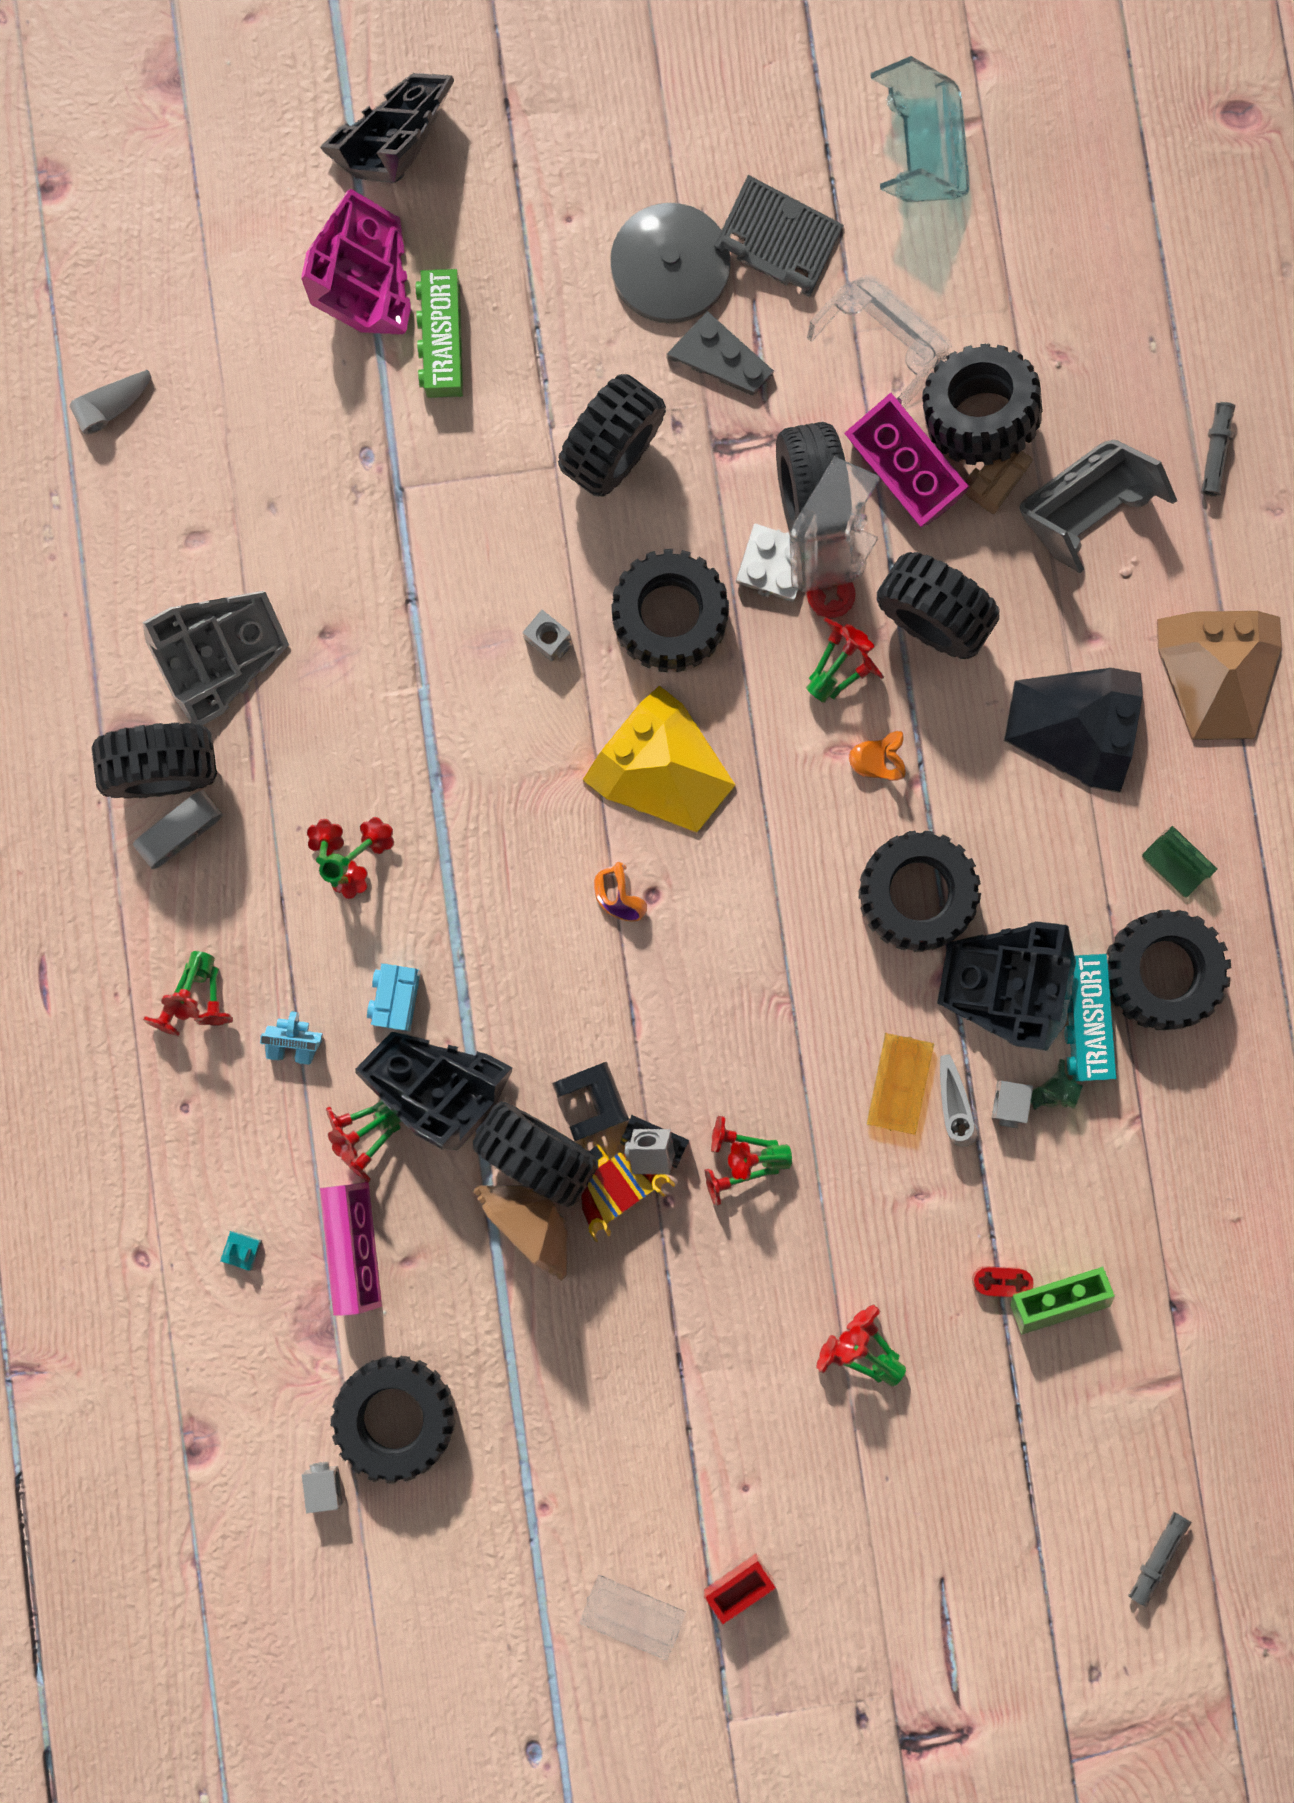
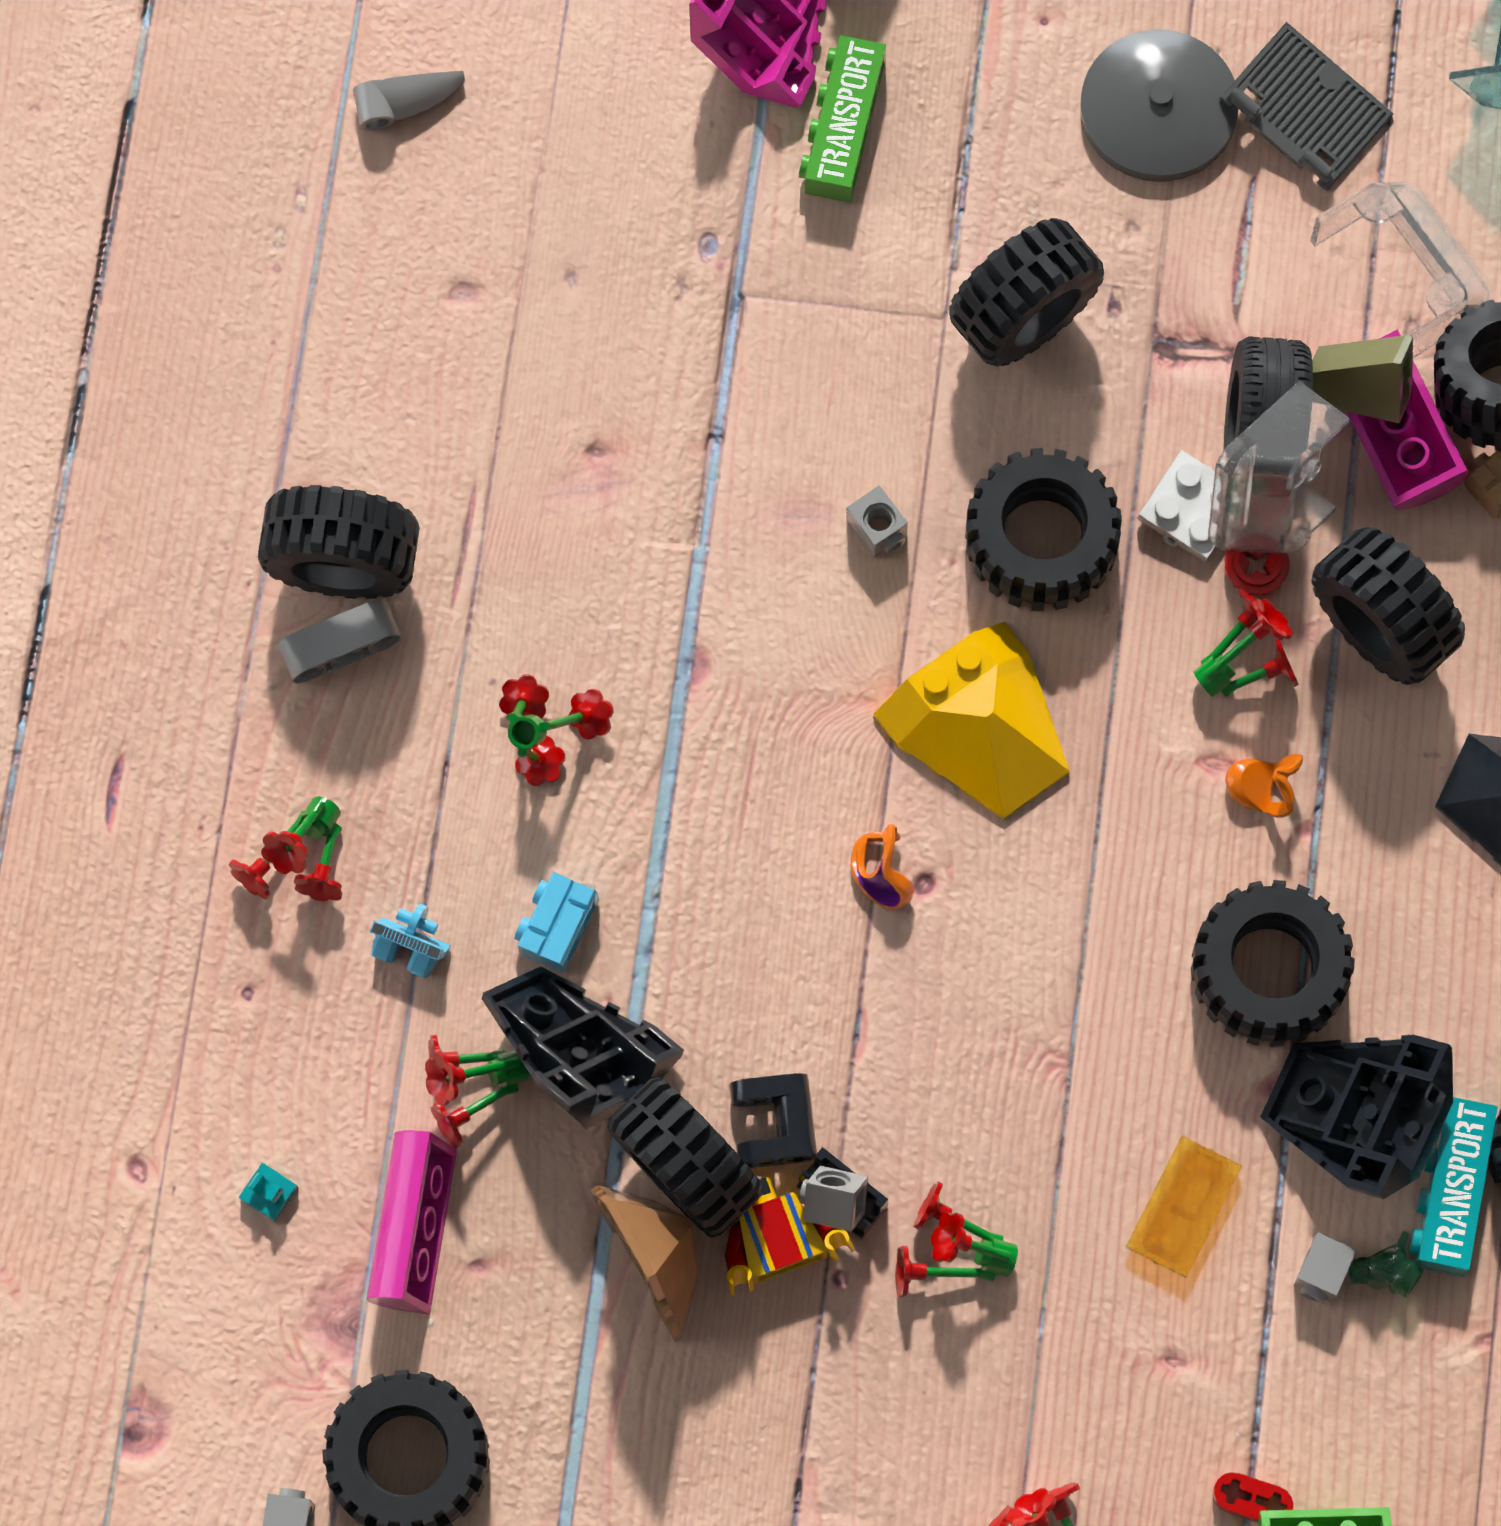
camera: 15 degrees right, 10 degrees down
(214, 650) = (450, 428): light grey wedge -> none
(718, 352) = (1194, 233): dark grey wing -> none
(878, 435) = (1366, 376): none -> olive slope
(955, 1104) = (1249, 1252): light grey piece -> none

